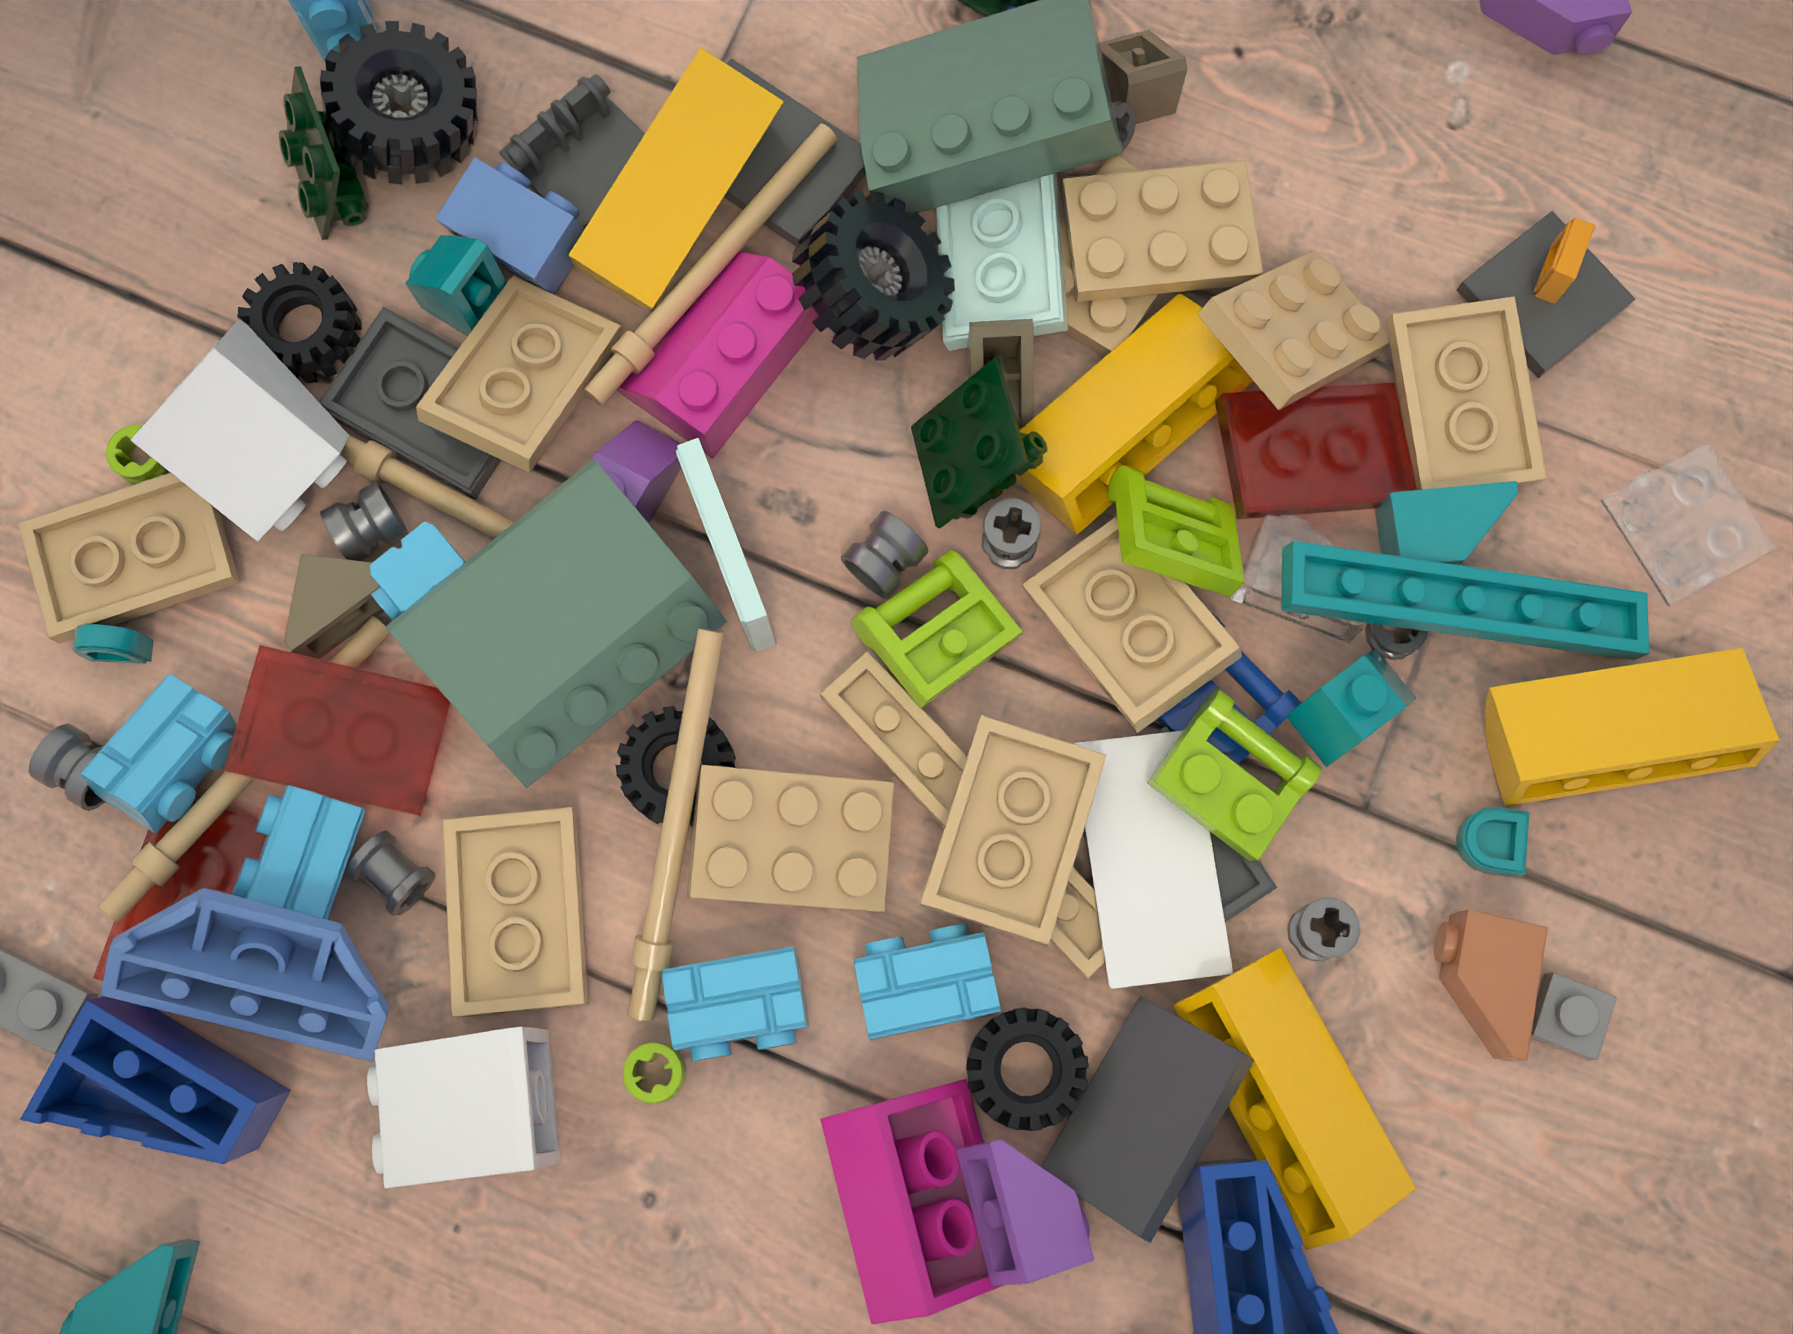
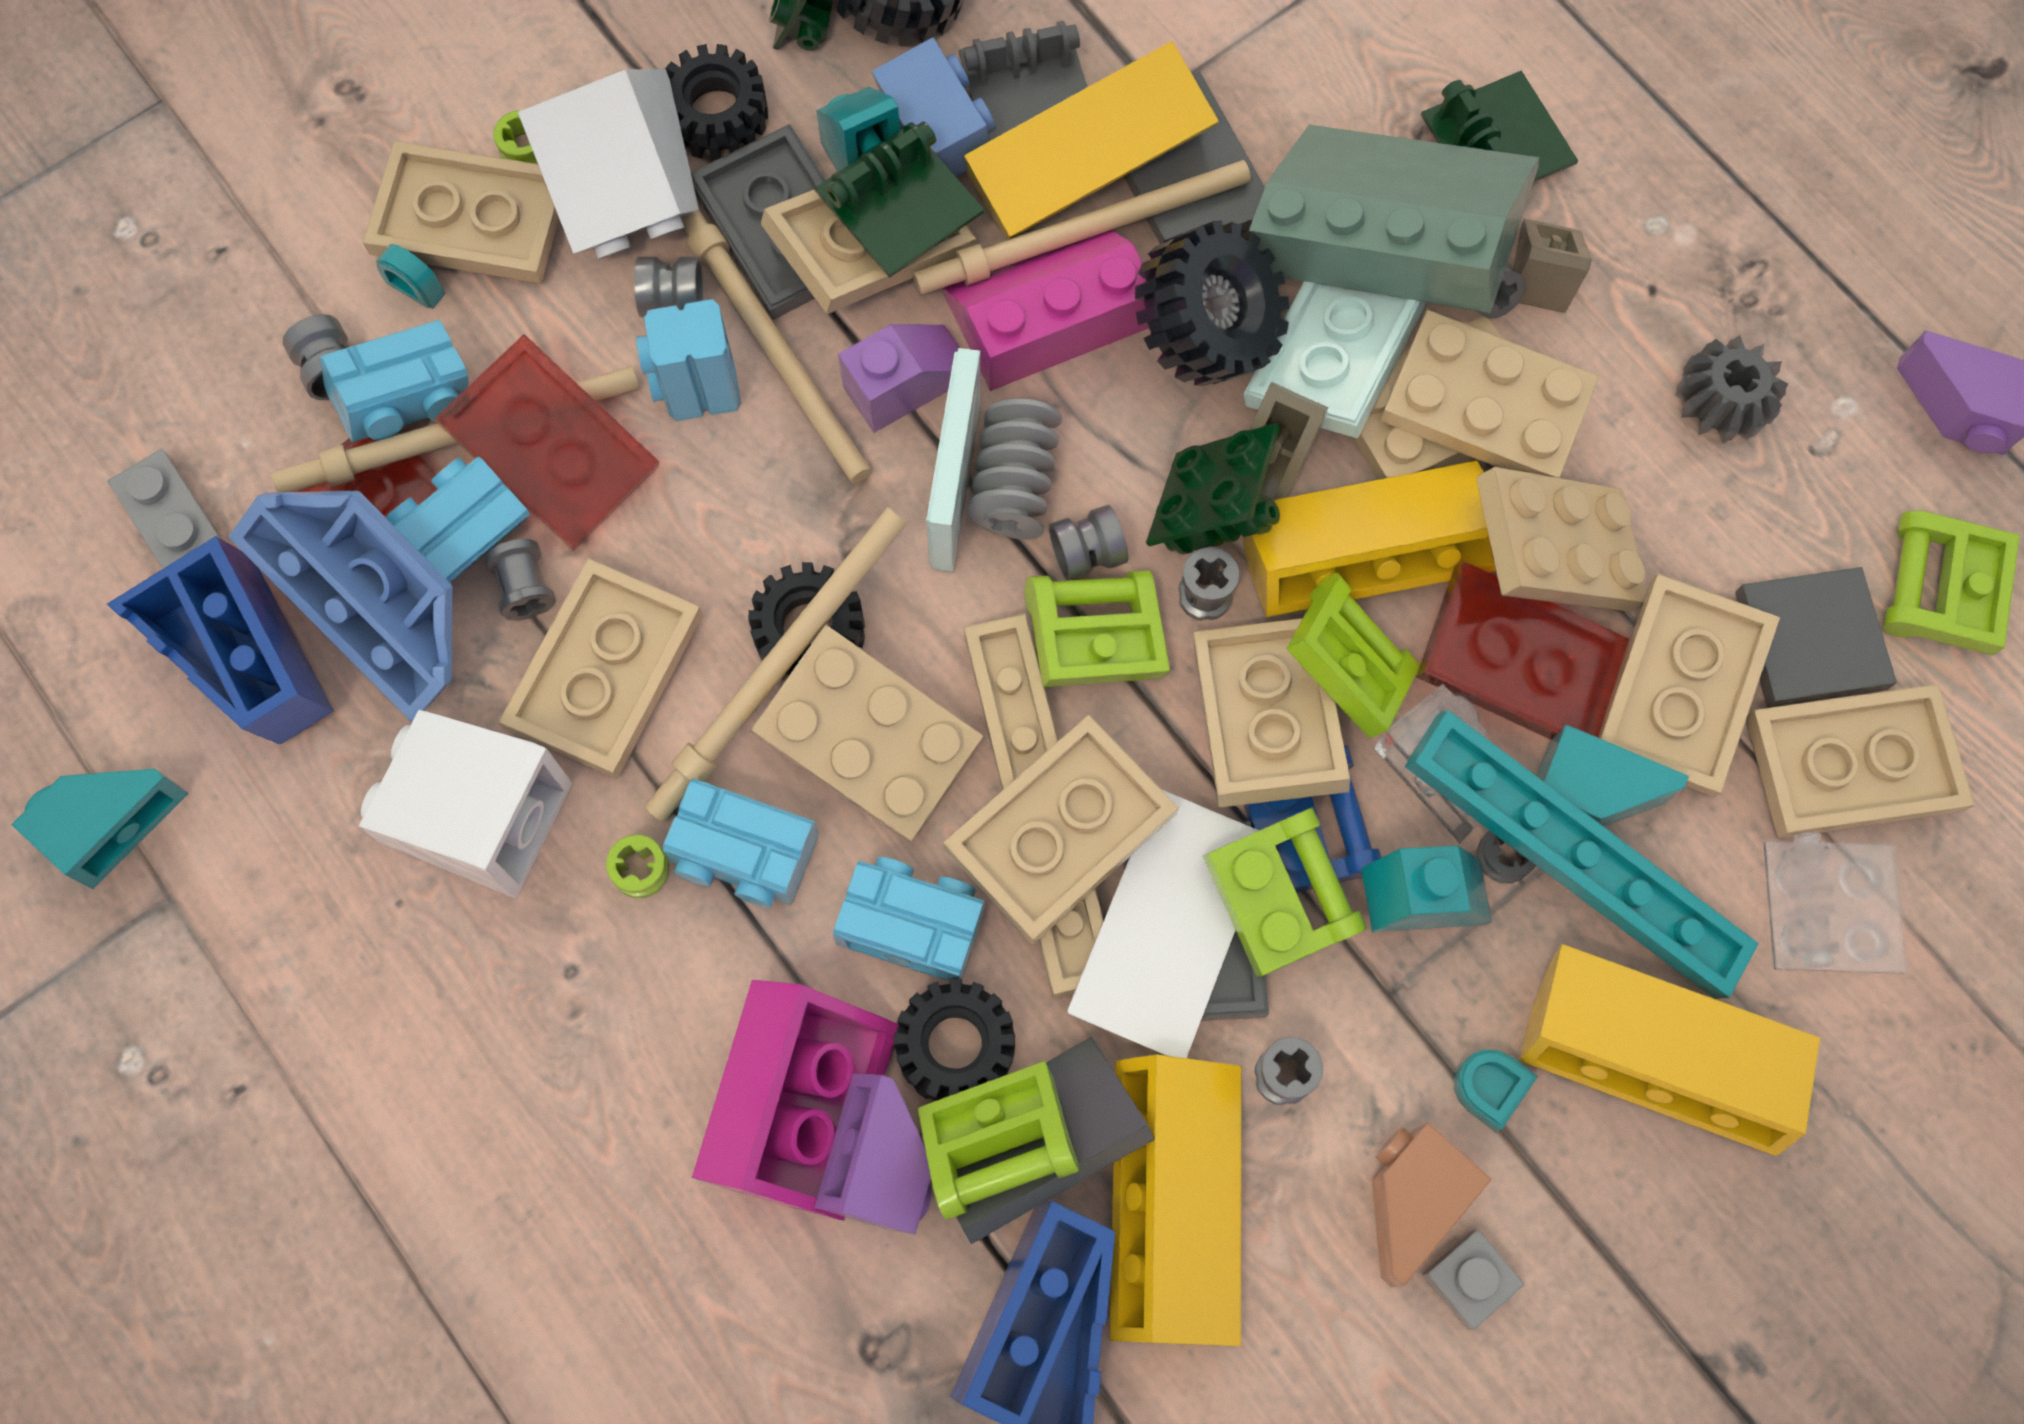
camera: 25 degrees right, 5 degrees down
(329, 604) = (598, 335): dark tan slope -> none
(535, 329) = (900, 198): none -> dark green hinge
(557, 623) = (774, 443): sand green slope -> none
(776, 522) = (1012, 467): none -> light grey piece
(1105, 1125) = (989, 1122): none -> lime plate
(1359, 109) = (1731, 389): none -> dark grey gear
(1563, 260) = (1844, 609): light orange tile -> none
(1641, 385) = (1859, 761): none -> tan plate
(1651, 178) = (1972, 585): none -> lime plate

